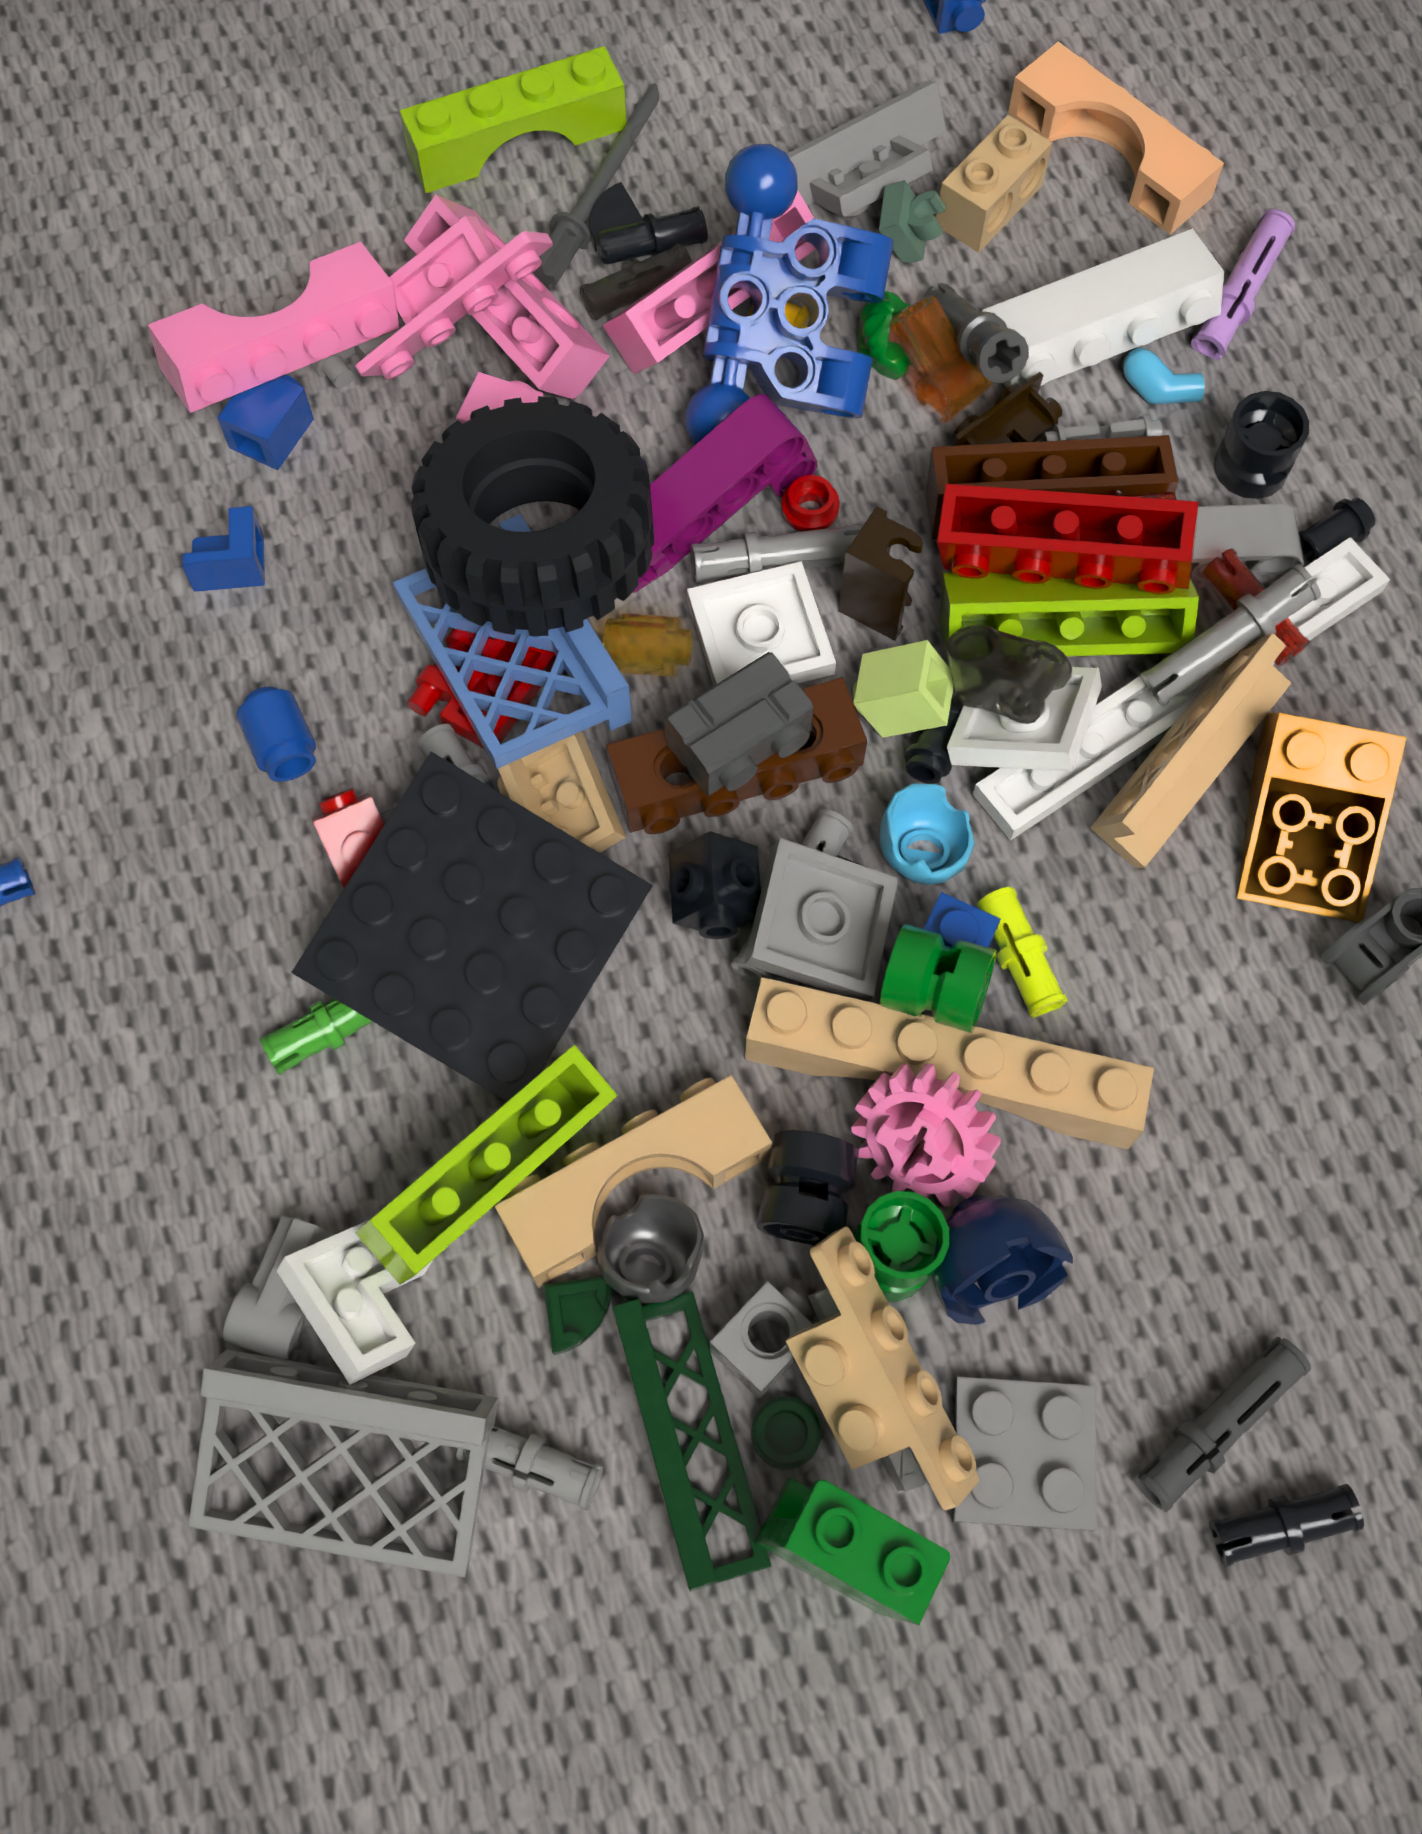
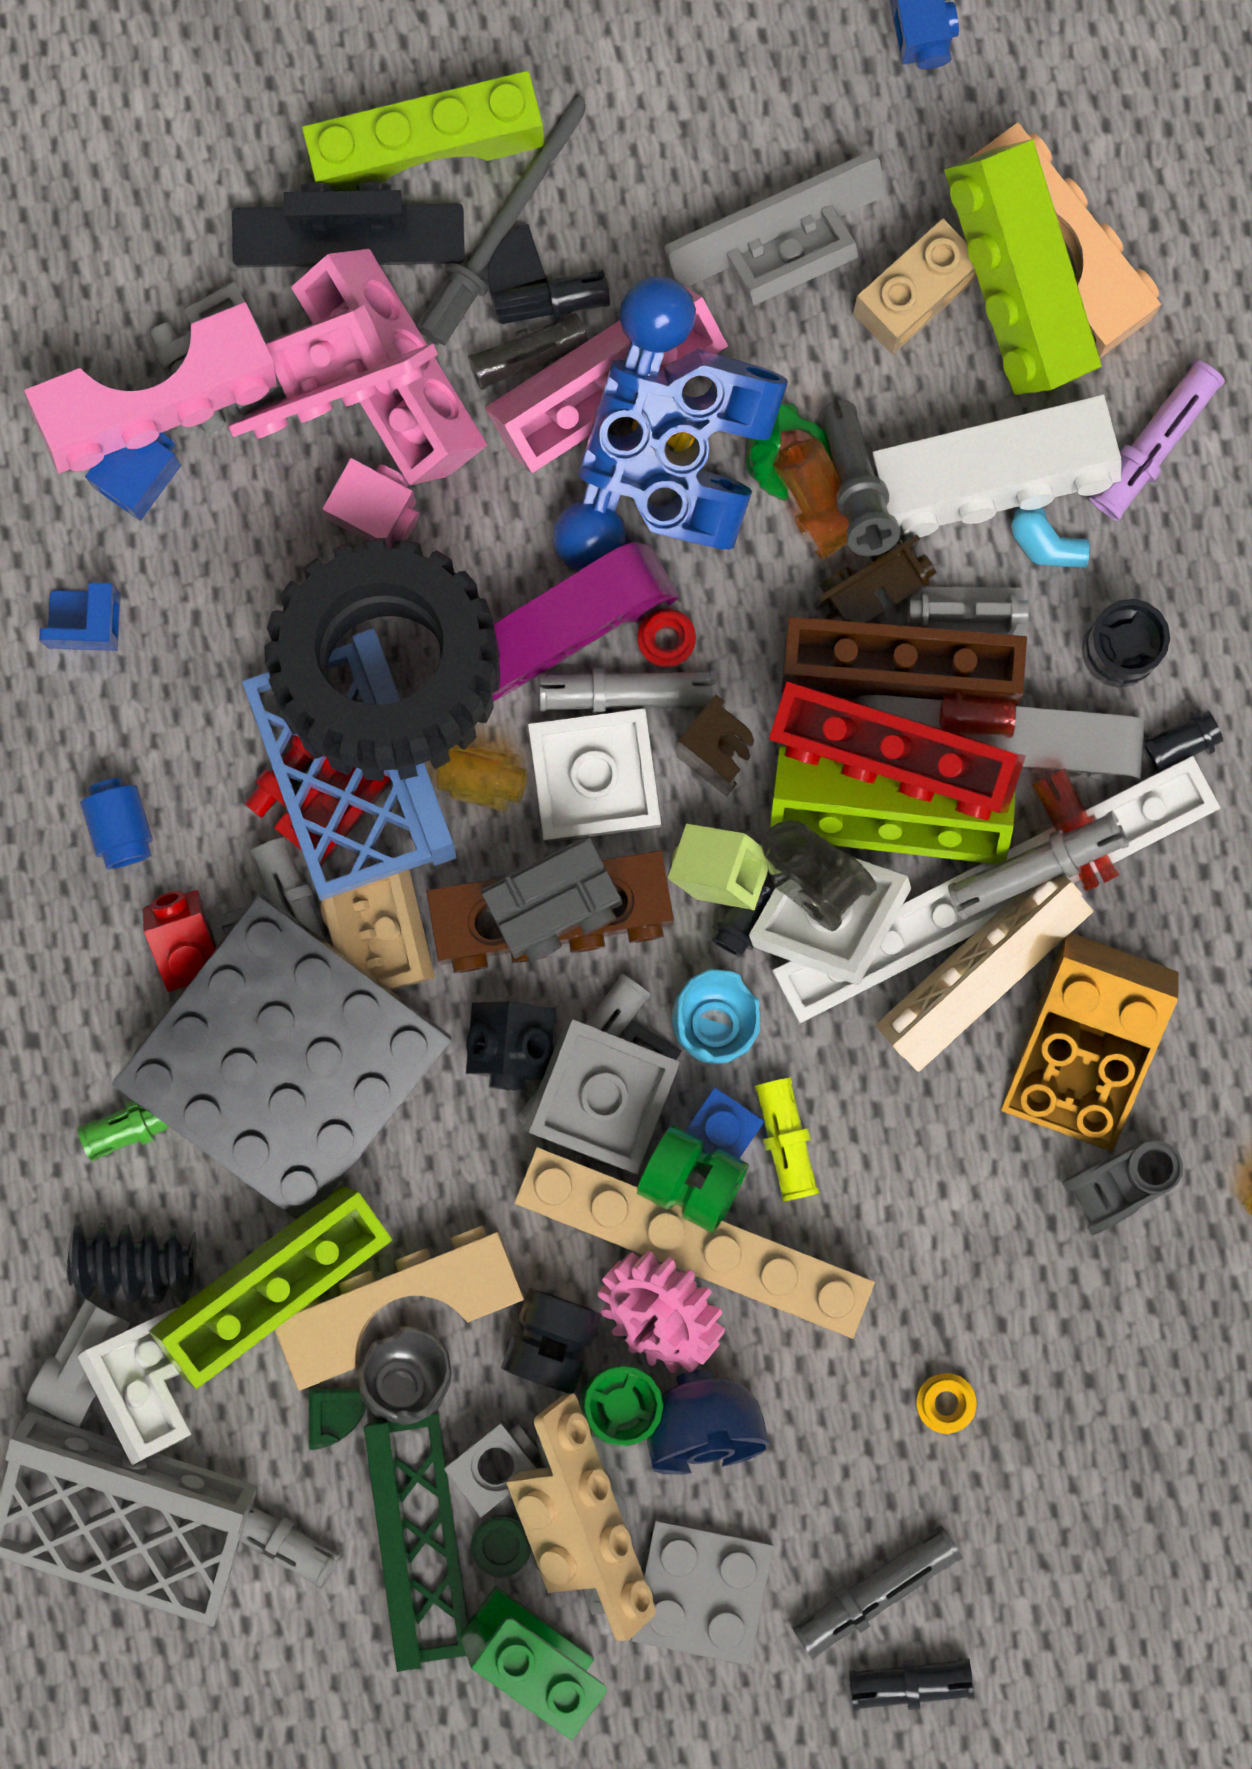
camera: 10 degrees right, 15 degrees up
(329, 1170) = (131, 1264): none -> black piece
(462, 174) = (331, 221): none -> black bracket
(910, 220) = (818, 320): sand green tile -> none
(1091, 138) = (1023, 267): none -> lime brick
(1265, 1188) = (965, 1403): none -> yellow plate

